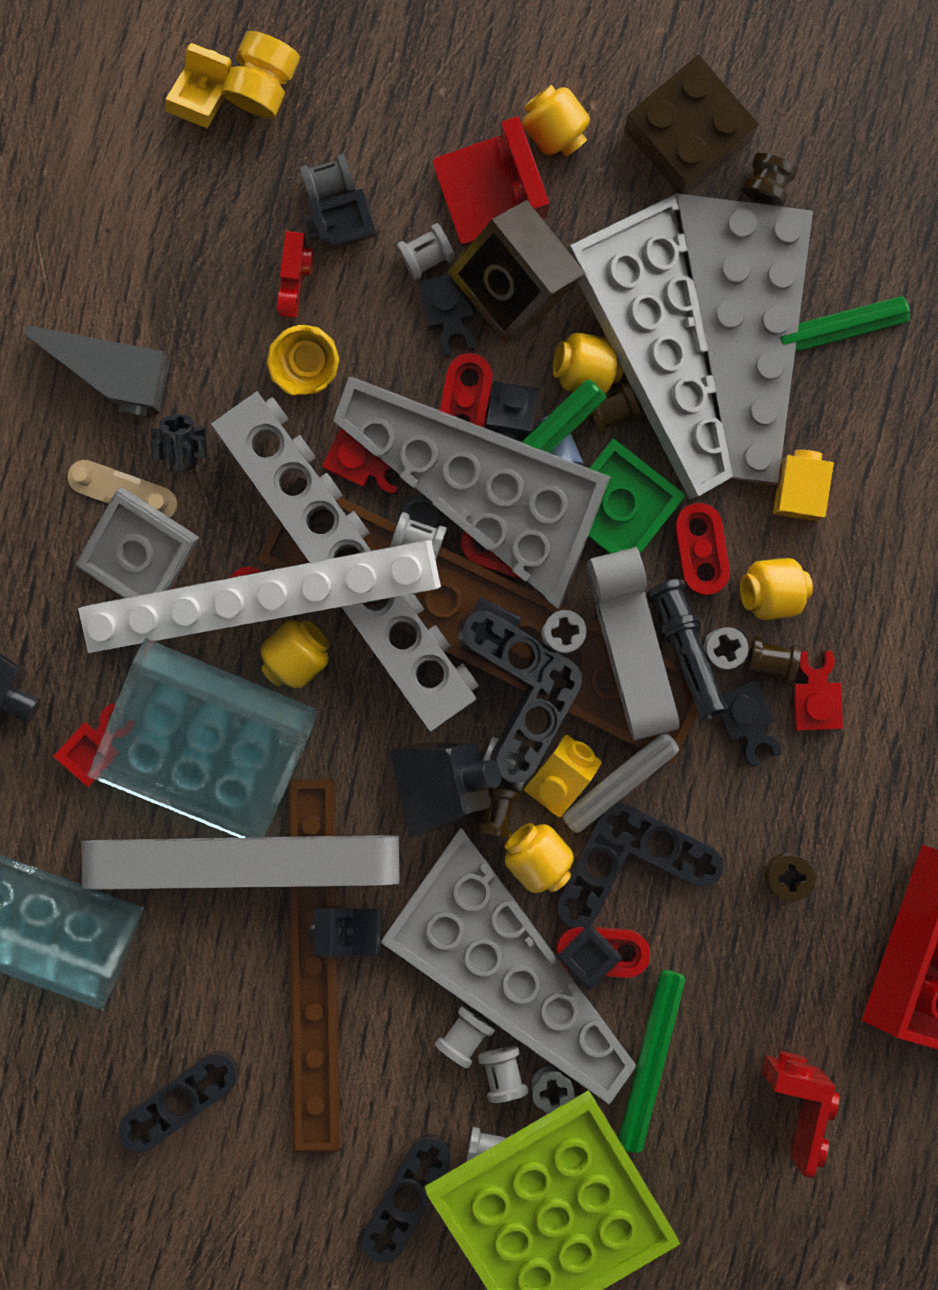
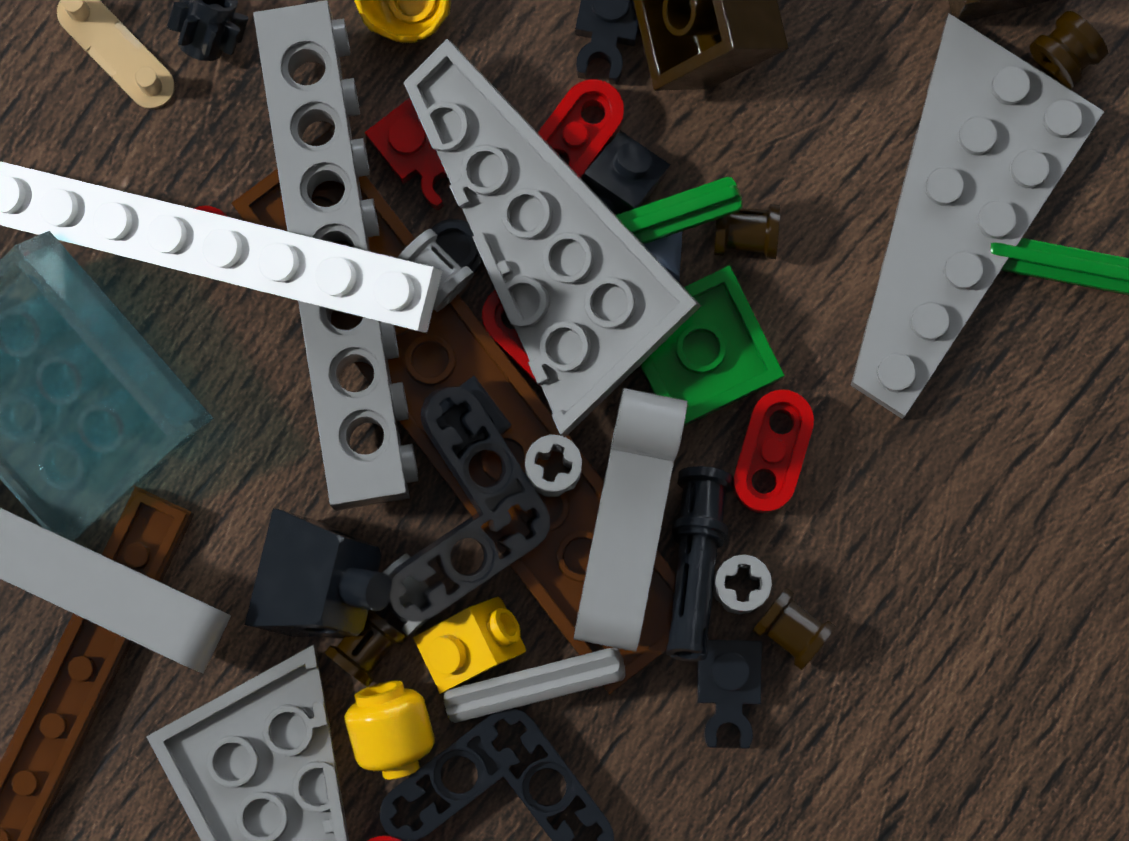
camera: 25 degrees right, 5 degrees down
(136, 547) = (95, 120): light grey tile -> none
(294, 654) = (219, 338): yellow head -> none
(346, 931) = (110, 702): black bracket -> none
(586, 358) = (748, 156): yellow head -> none
(656, 327) = (844, 154): light grey wing -> none
(775, 588) = (839, 542): yellow head -> none
(803, 486) = (933, 434): yellow brick -> none
(817, 702) = (825, 705): red plate -> none

